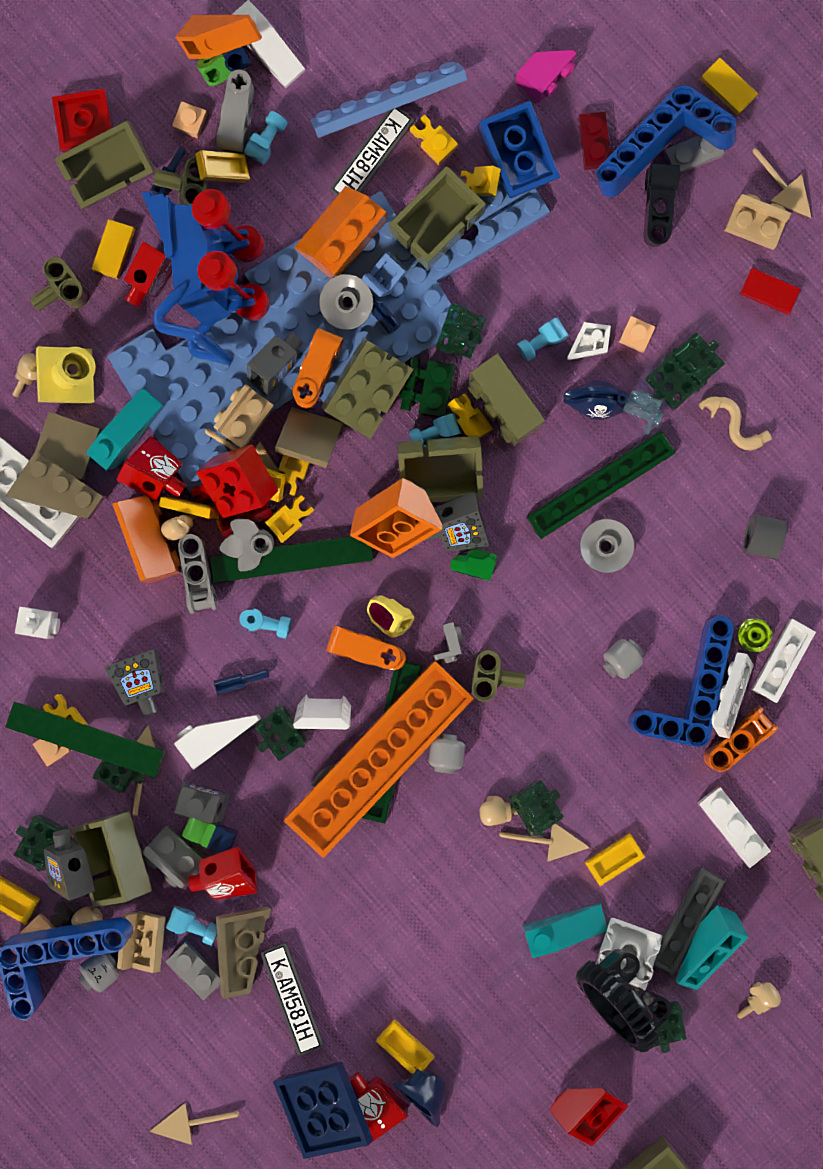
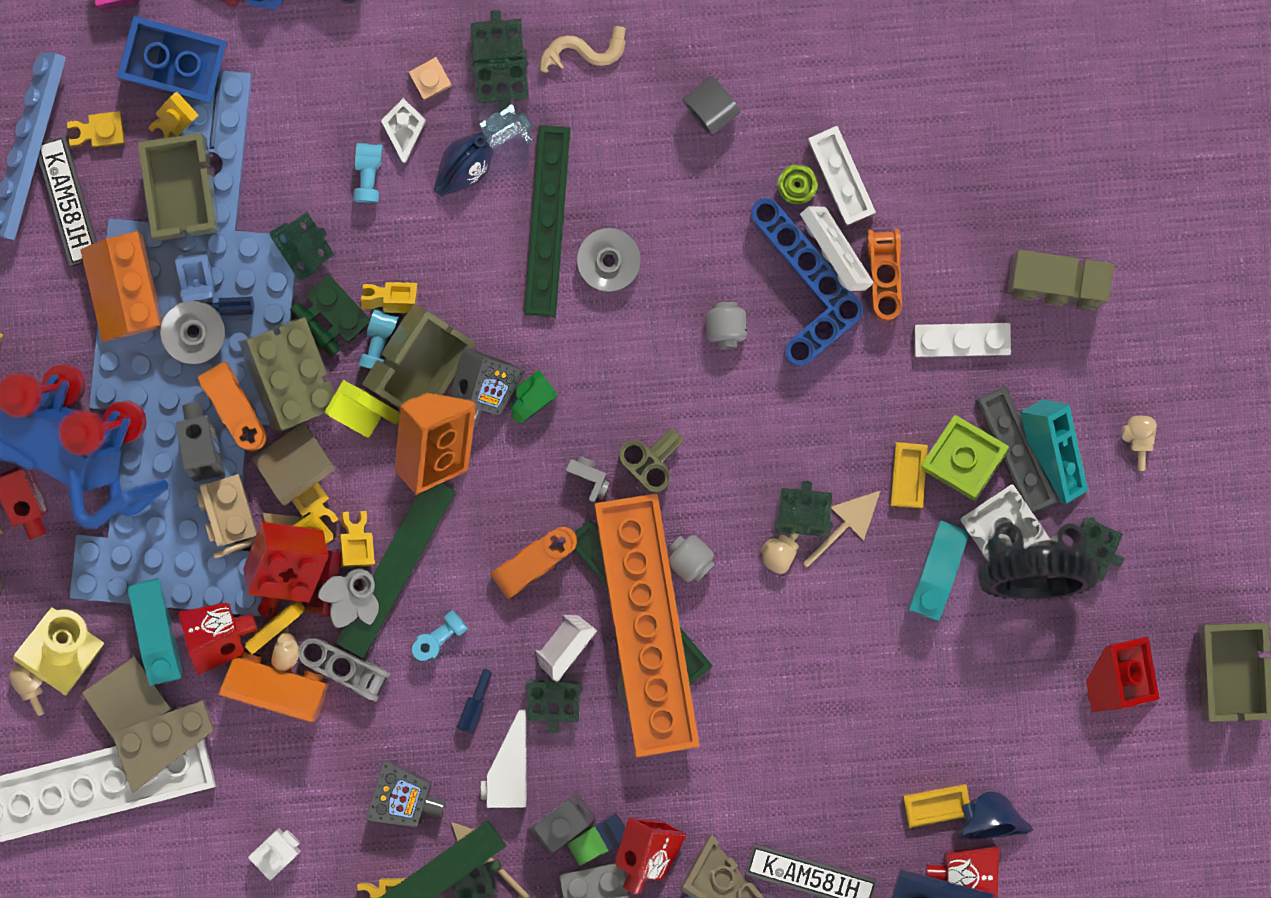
camera: 55 degrees left, 0 degrees up
(378, 453) = (359, 409): none -> neon yellow panel
(389, 616) = (520, 514): light yellow rock -> none
(505, 401) = (399, 253): olive piece -> none
(656, 890) = (964, 457): none -> lime plate

